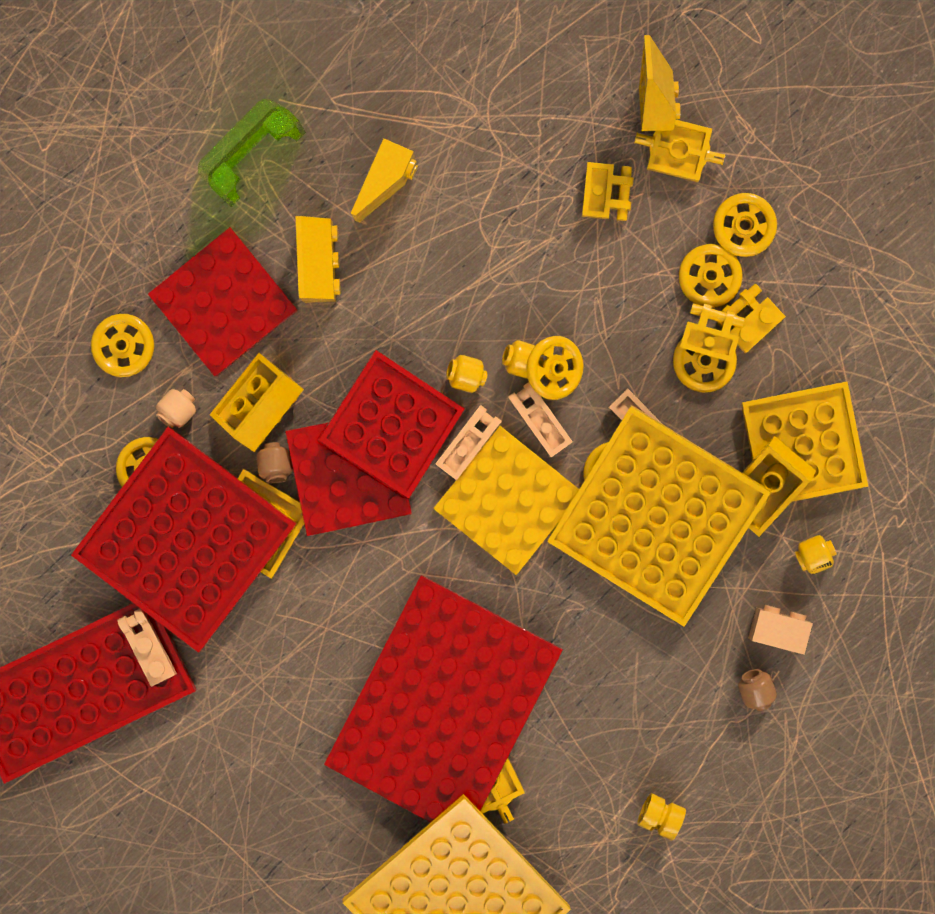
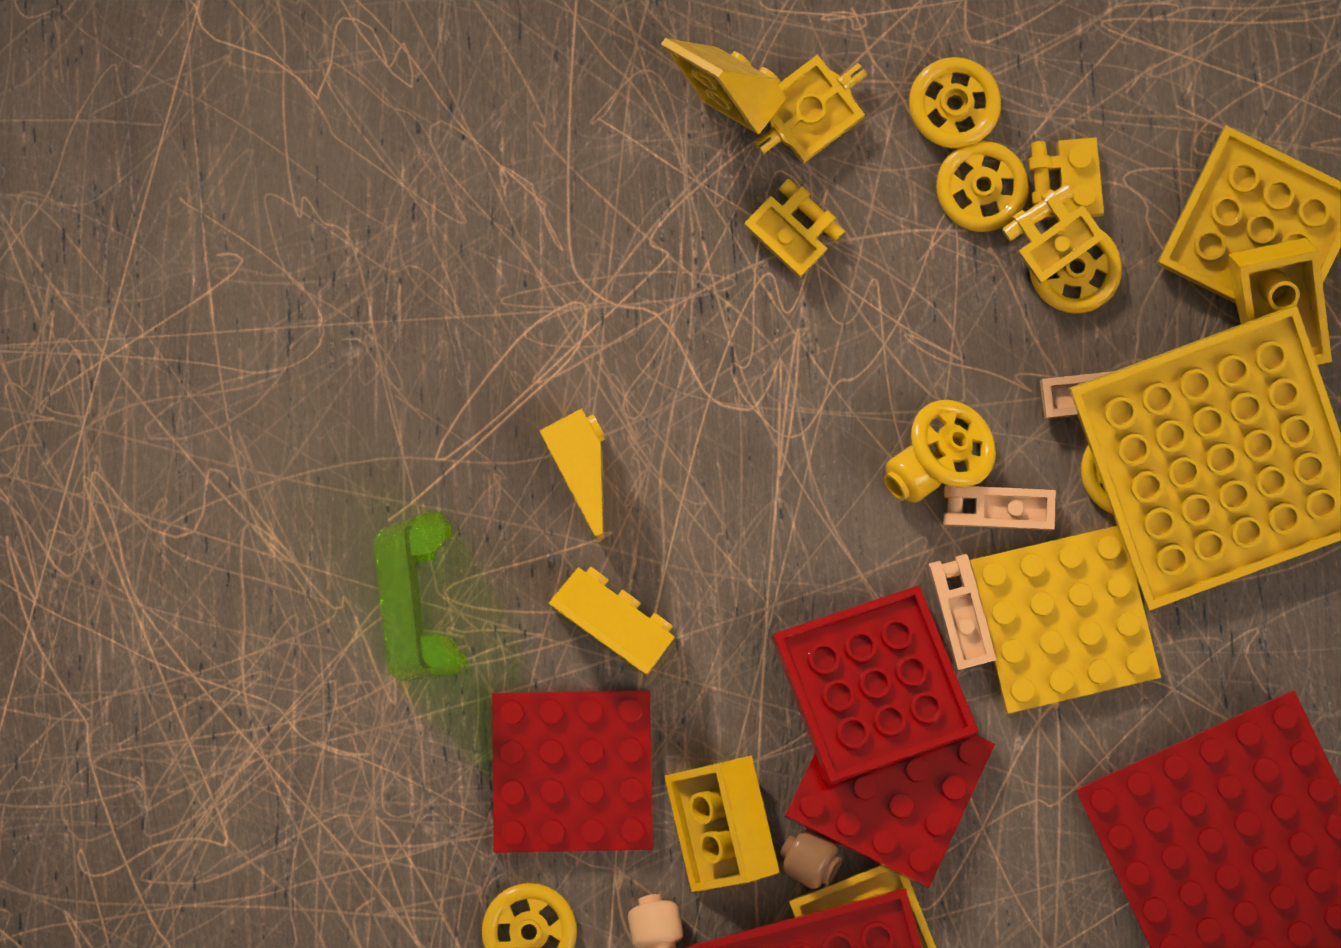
camera: 50 degrees left, 5 degrees down
(466, 373) = (880, 551): yellow head -> none

